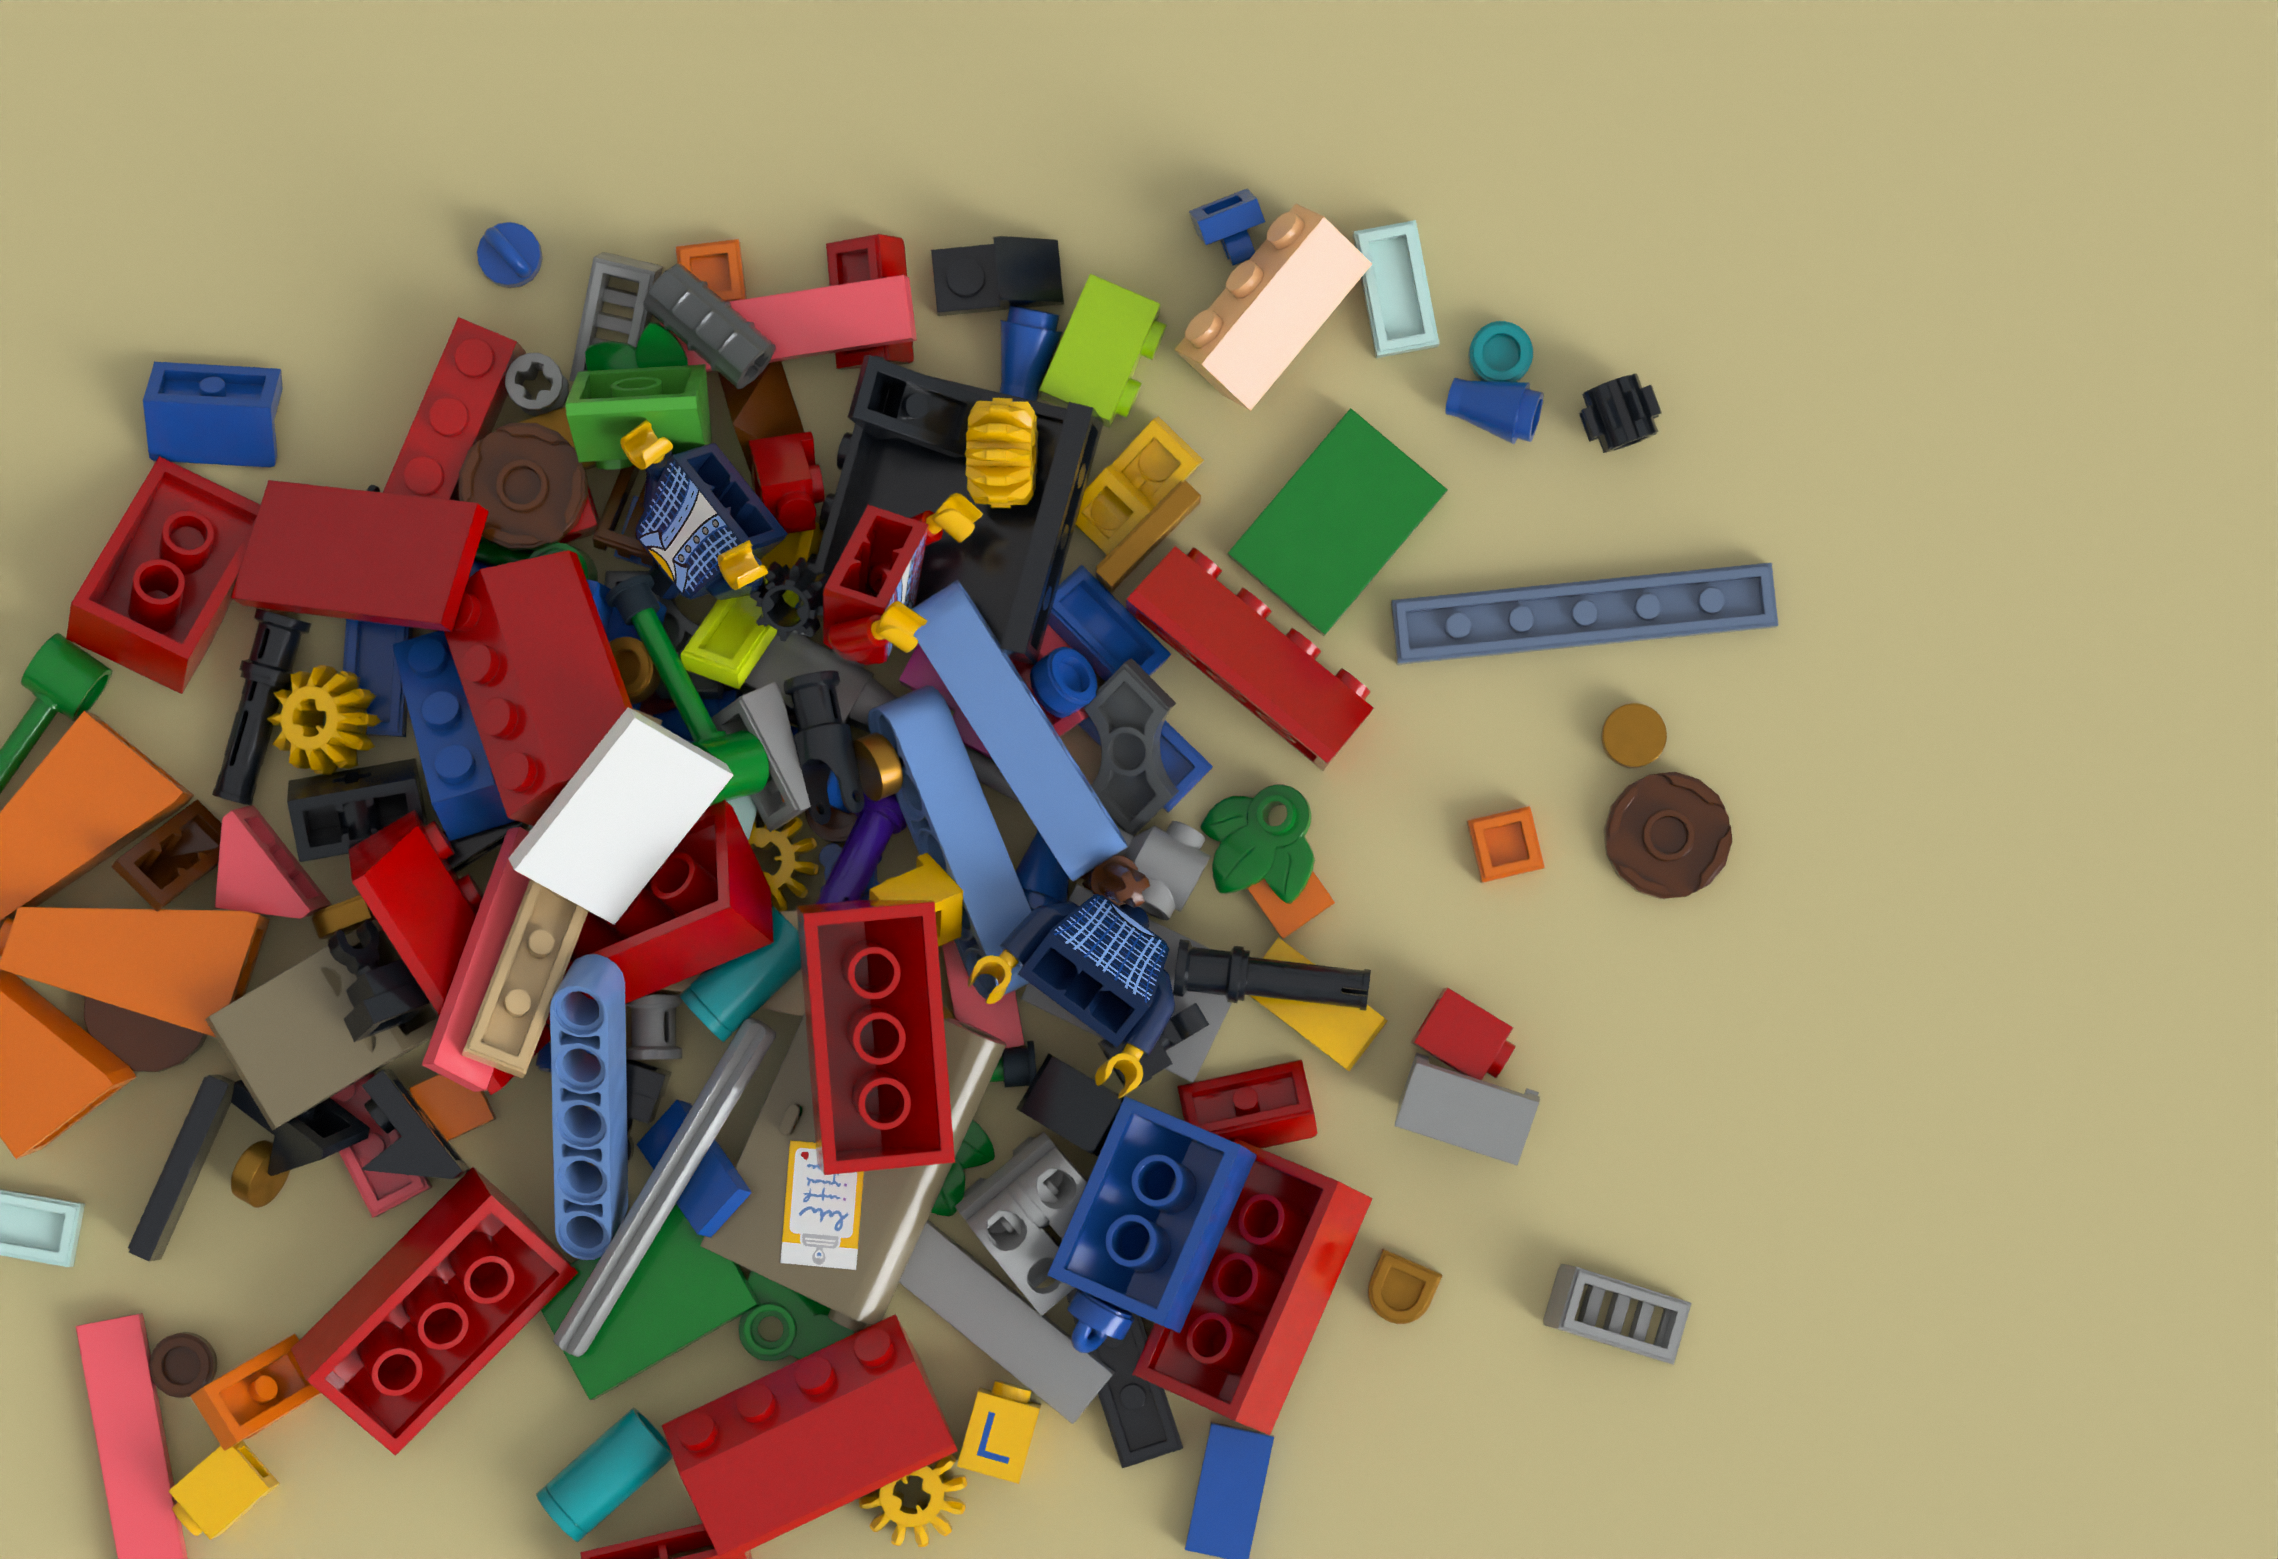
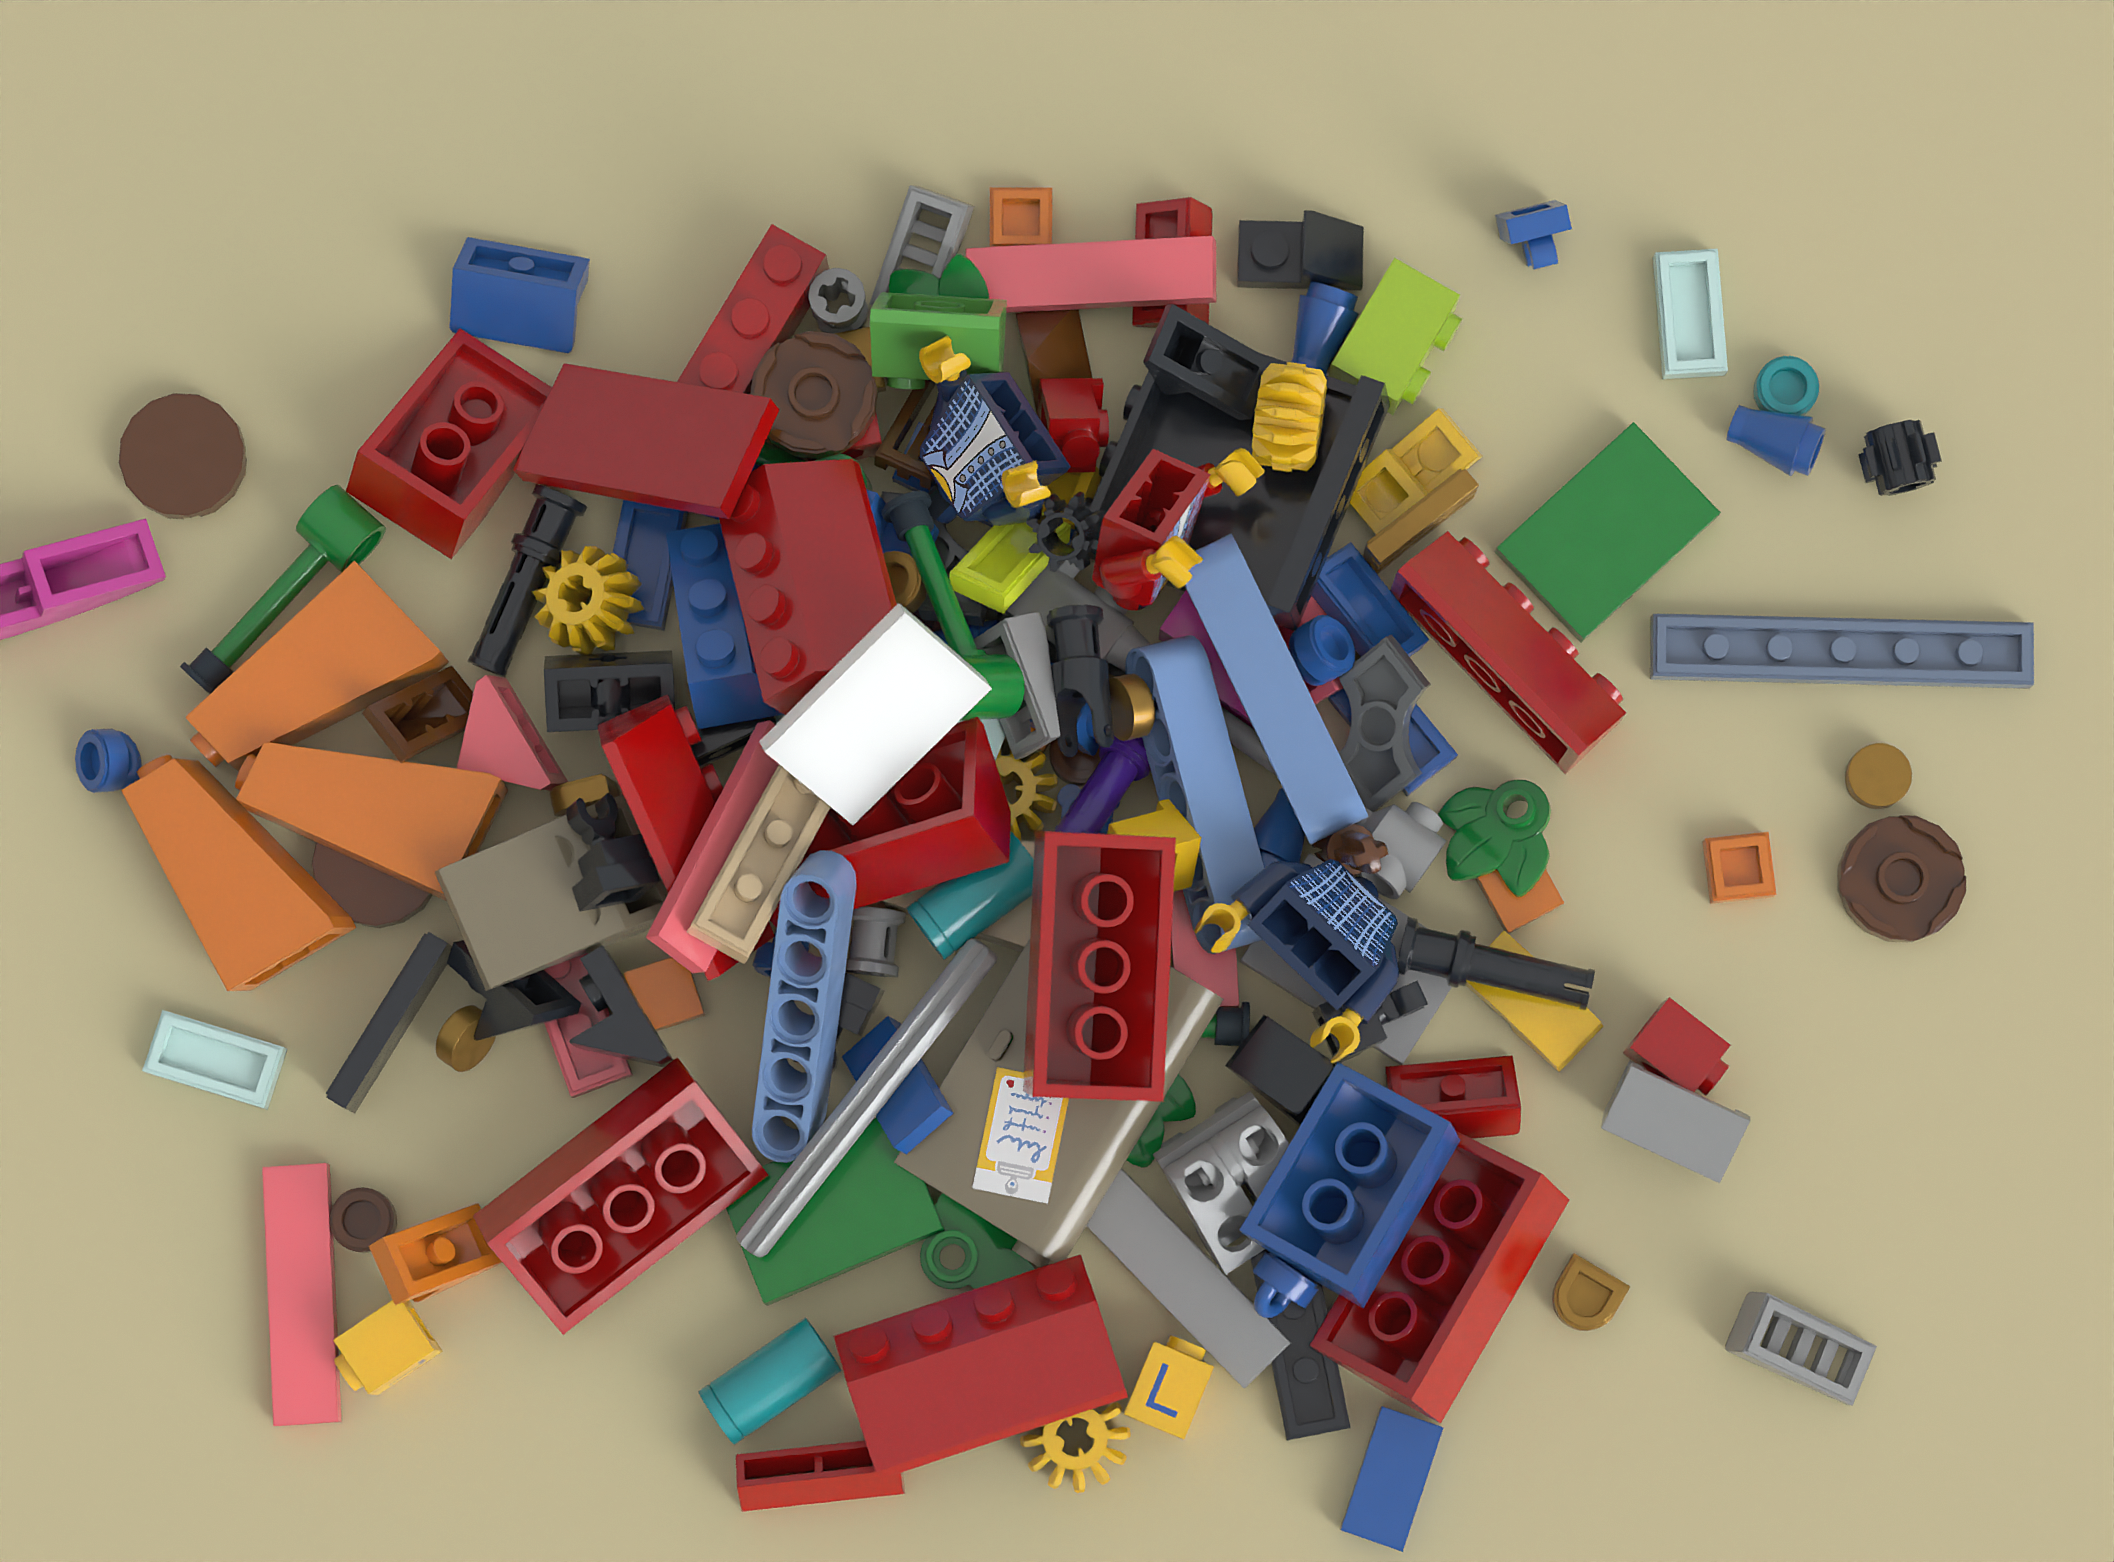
camera: 10 degrees right, 5 degrees down
(509, 255) = (826, 177): blue tile -> none
(709, 326) = (1015, 263): dark grey axle -> none
(1272, 305) = (1569, 311): light nougat brick -> none

